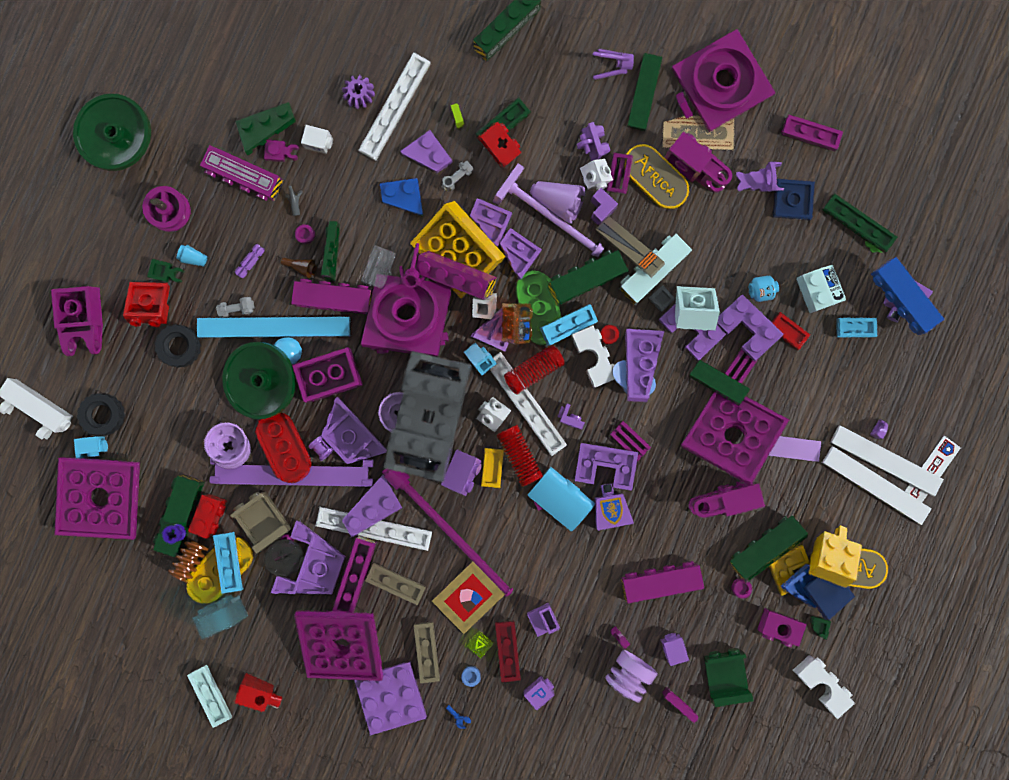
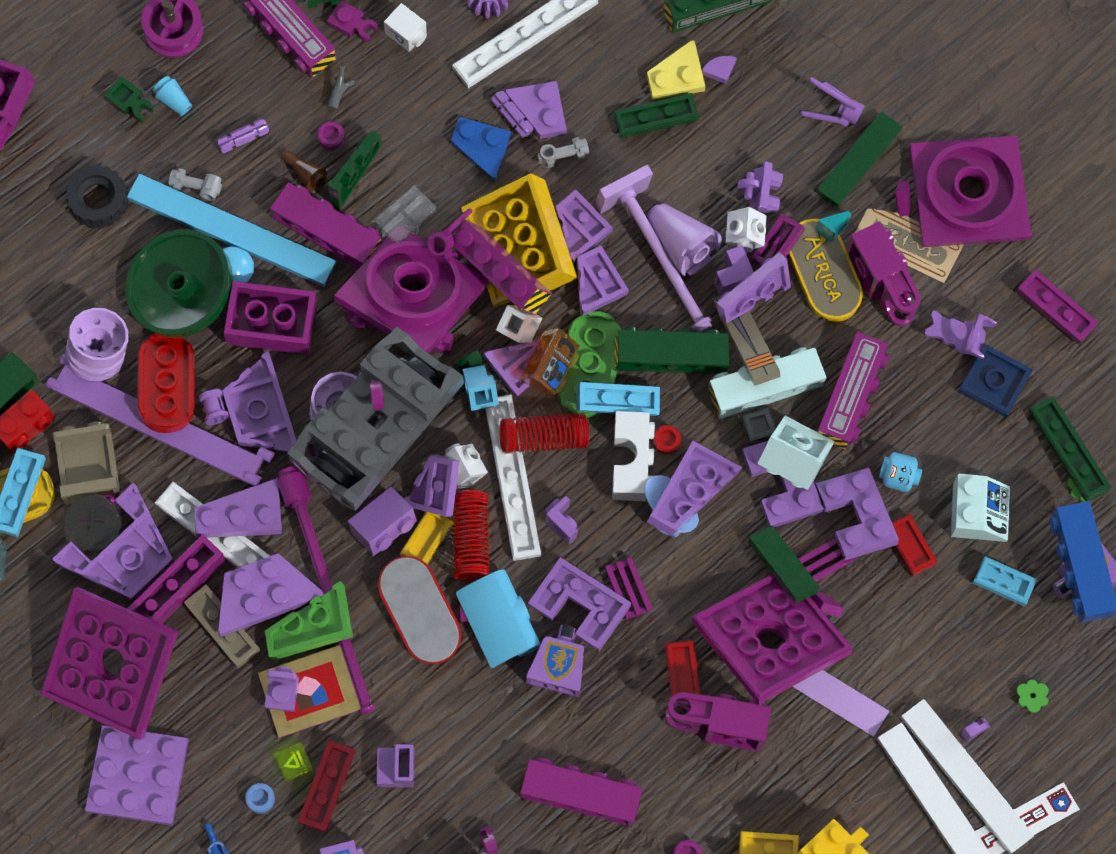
camera: 20 degrees right, 15 degrees down
(147, 303) = (85, 127): red plate -> none
(410, 552) = (262, 592): none -> medium lavender wing
(412, 165) = (512, 114): none -> medium lavender axle
(423, 405) = (377, 396): none -> magenta tile
(426, 652) = (217, 736): dark tan plate -> none
(452, 558) = (314, 626): none -> bright green wing
(452, 606) = (281, 689): none -> medium lavender bracket
(457, 116) = (600, 79): lime tile -> none
(466, 343) = (471, 360): none -> dark green tile
(484, 437) = (436, 486): none -> medium lavender wing
(490, 138) = (626, 125): red brick -> none
(503, 88) = (677, 74): none -> light yellow wing
(510, 516) = (419, 610): none -> flat silver tile
(529, 71) = (720, 68): none -> medium lavender tile
(624, 209) = (767, 279): none -> medium lavender wing
(651, 146) = (833, 225): none -> teal slope
(686, 476) = (682, 667): none -> red tile
(710, 249) = (852, 389): none -> magenta brick
(756, 394) = (827, 604): none -> magenta tile
(768, 549) = (748, 814): dark green brick -> none
(908, 391) = (1038, 690): none -> bright green plant

